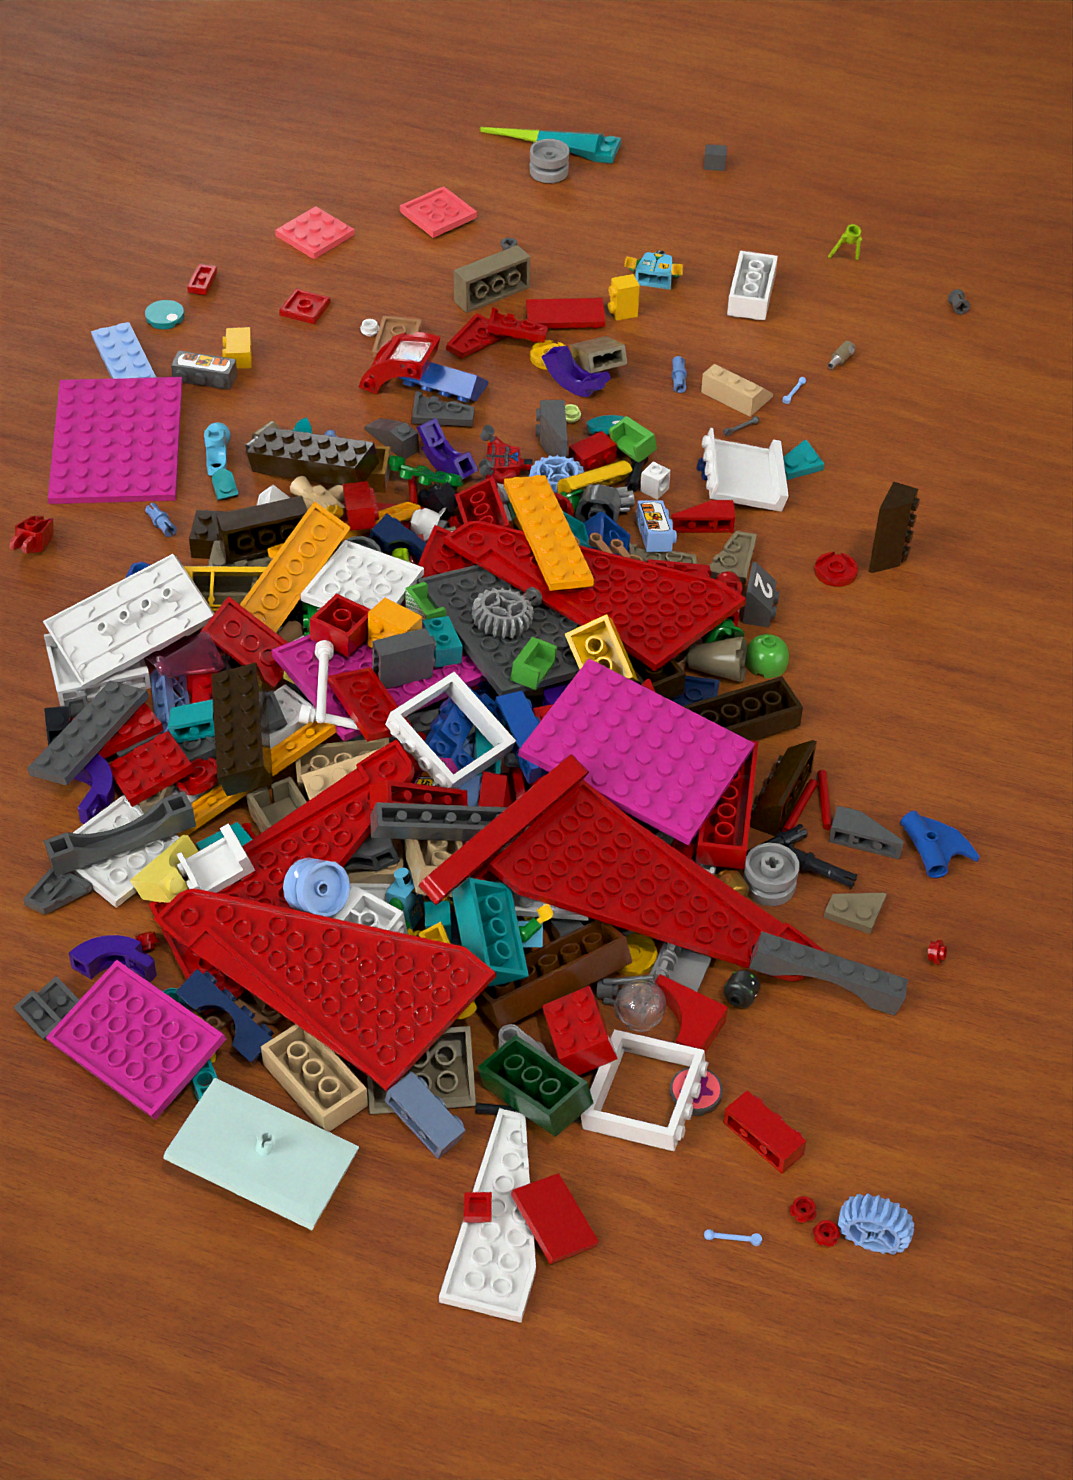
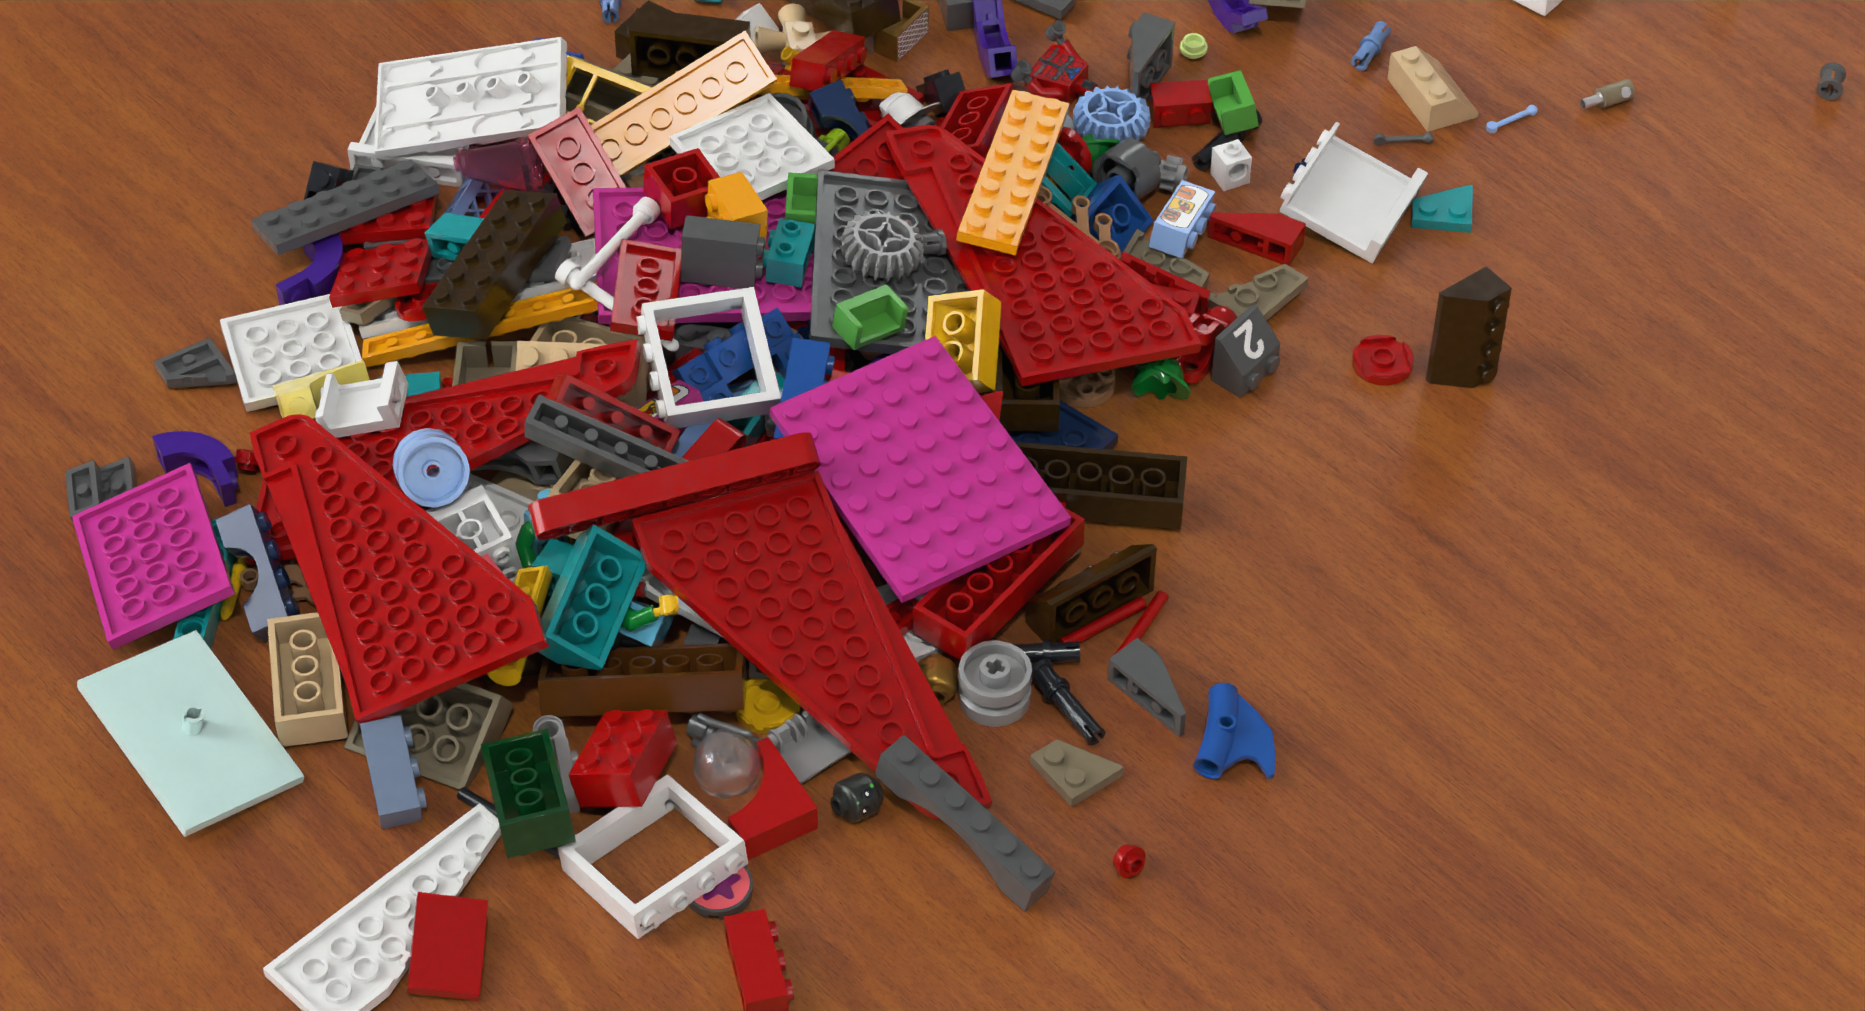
camera: 30 degrees right, 0 degrees up
(75, 850) = (235, 329): dark grey arch -> none
(413, 490) = (924, 69): red bar -> none
(426, 475) = (941, 55): green plant -> none
(477, 1206) = (369, 893): red plate -> none
(600, 476) = (1153, 134): yellow brick -> none
(602, 423) = (1213, 69): teal tile -> none
(719, 658) = (1140, 409): dark tan cone -> none
(767, 656) = (1204, 429): bright green cylinder -> none

